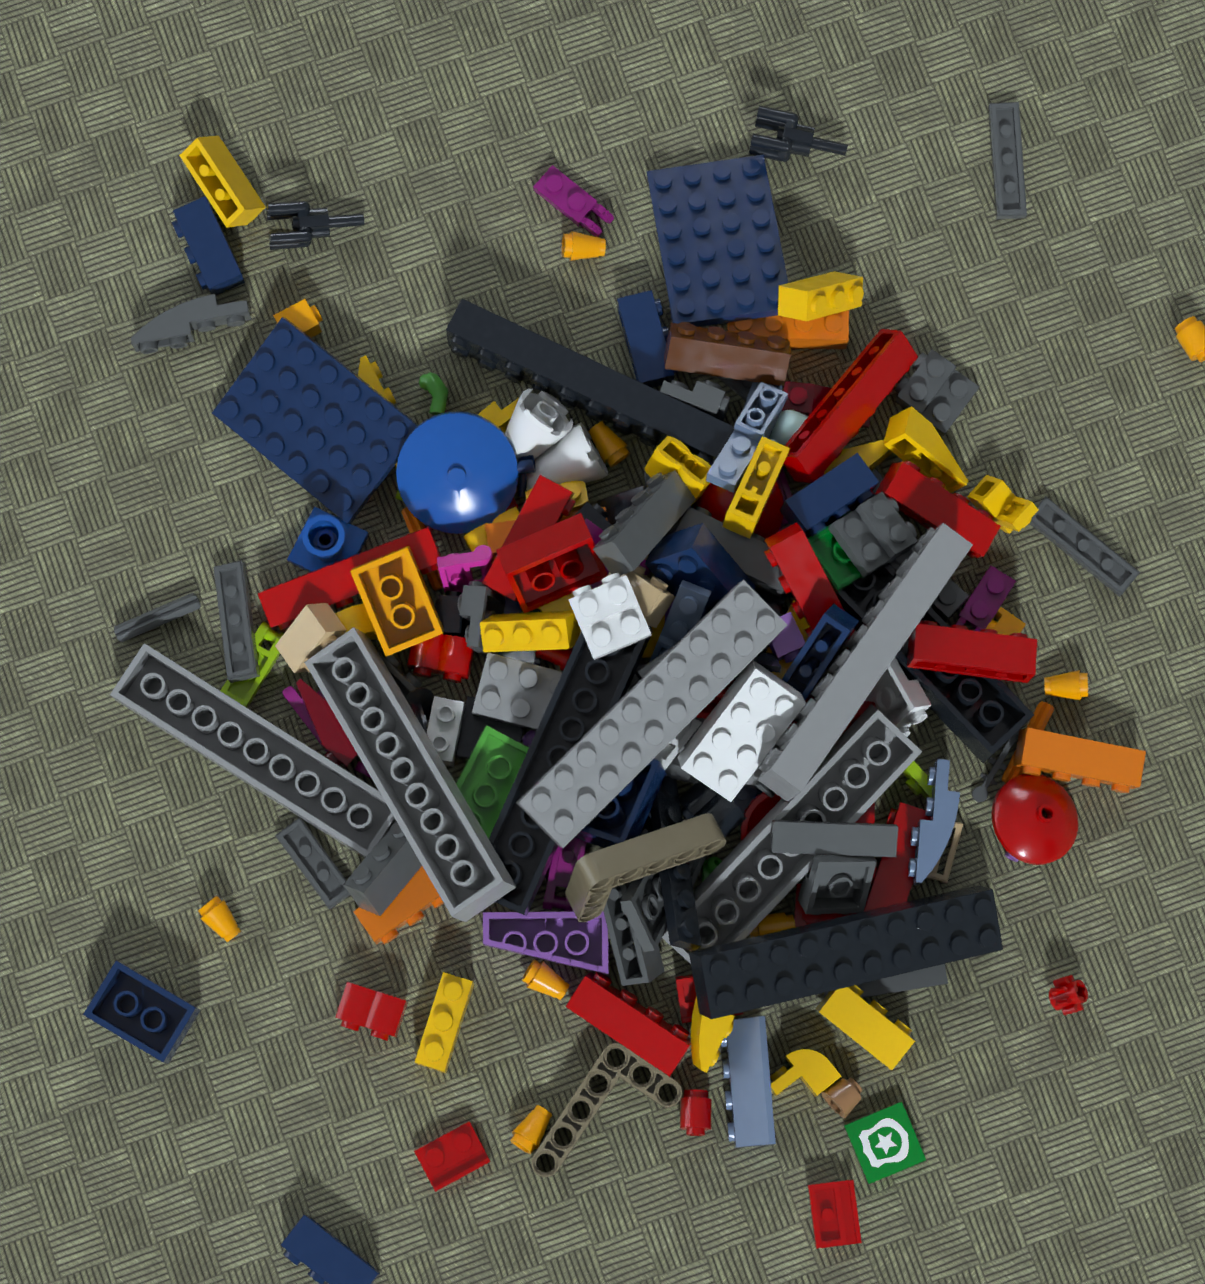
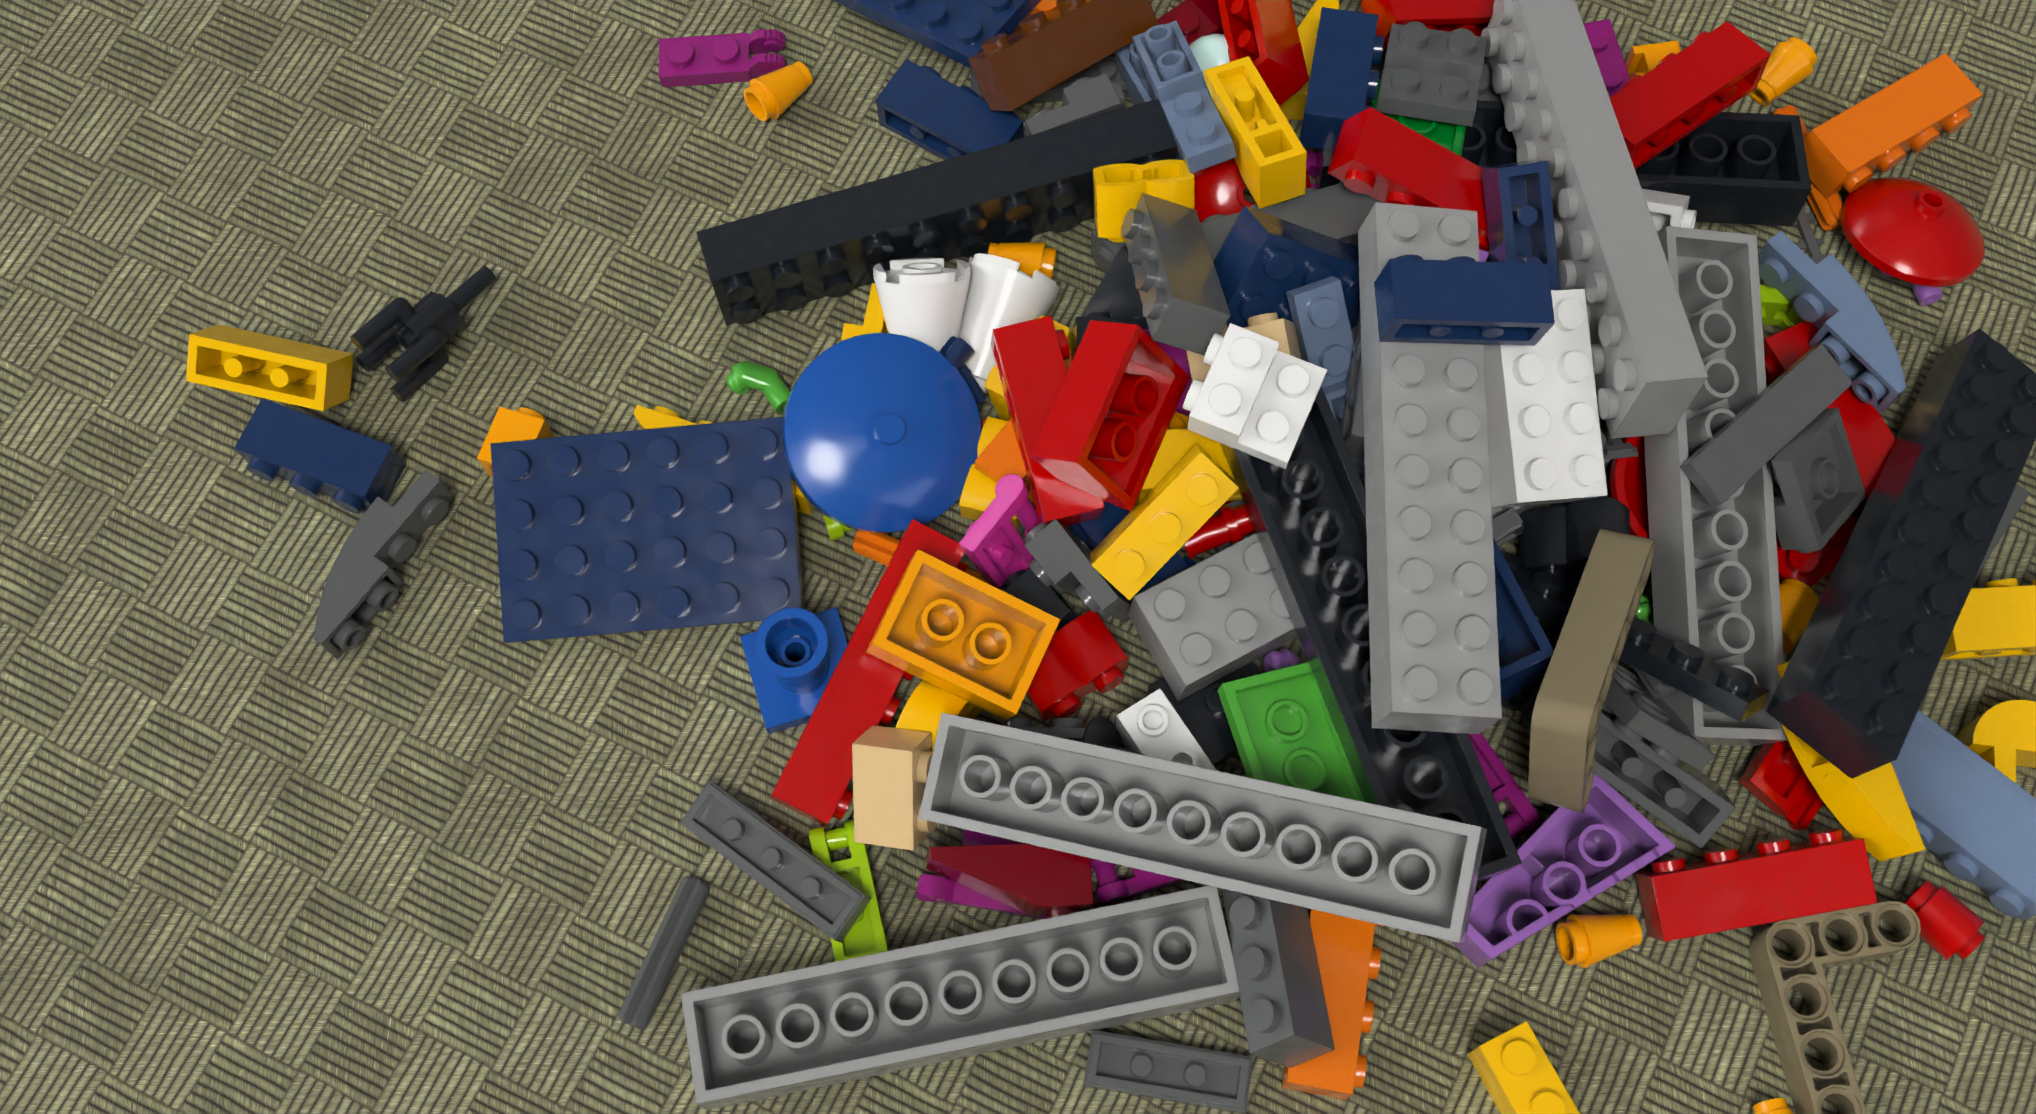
camera: 40 degrees left, 10 degrees down
(726, 660) = (1463, 301): none -> dark blue brick

